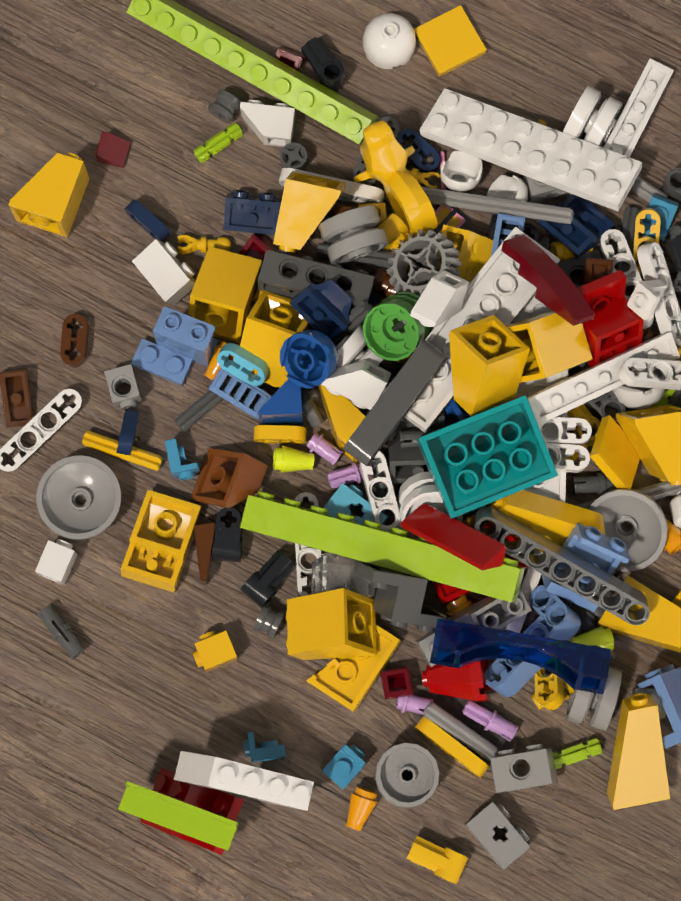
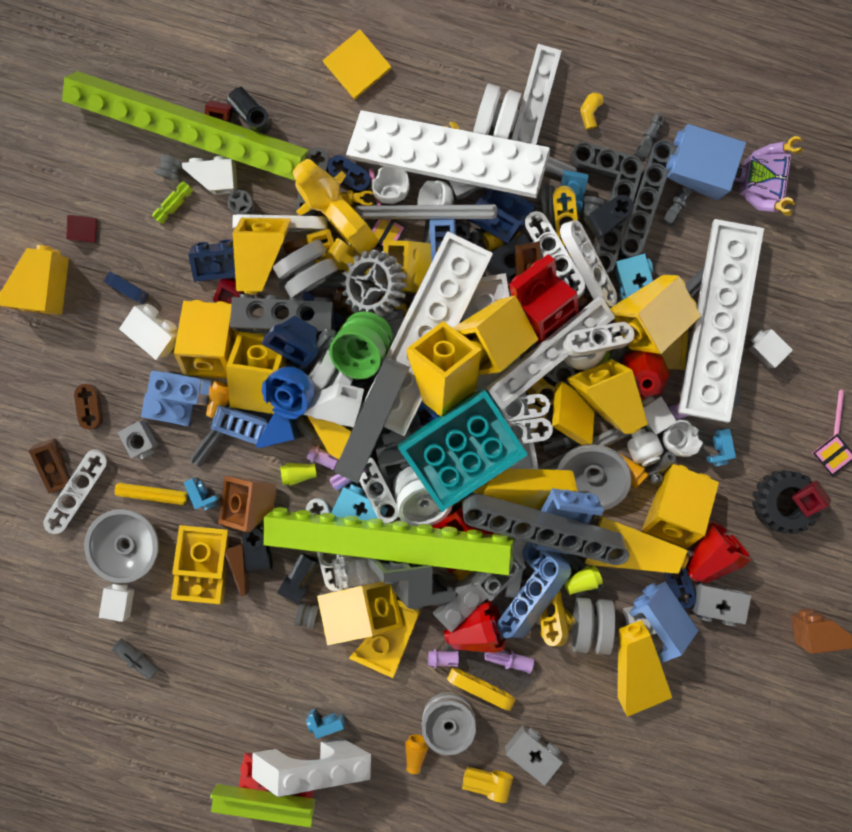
camera: 10 degrees left, 10 degrees up
(127, 432) = (150, 479): dark blue beam -> none
(201, 244) = (179, 297): yellow piece -> none
(214, 651) = (266, 649): yellow brick -> none
(243, 364) = (234, 402): medium azure beam -> none
(279, 434) = (281, 453): yellow beam -> none
(345, 765) = (395, 721): dark azure bracket -> none
(389, 41) = (303, 76): white cylinder -> none
(396, 683) = (424, 647): dark red slope -> none
(440, 299) = (392, 318): white slope -> none
(455, 537) = (448, 529): red slope -> none
(460, 731) = (486, 675): light grey axle -> none
(506, 771) = (537, 708): light grey brick -> none
(552, 283) = (489, 281): dark red slope -> none
(577, 664) = (577, 613): clear blue arch -> none
(577, 752) = (584, 672): lime axle -> none
(646, 297) = (576, 274): white bracket -> none

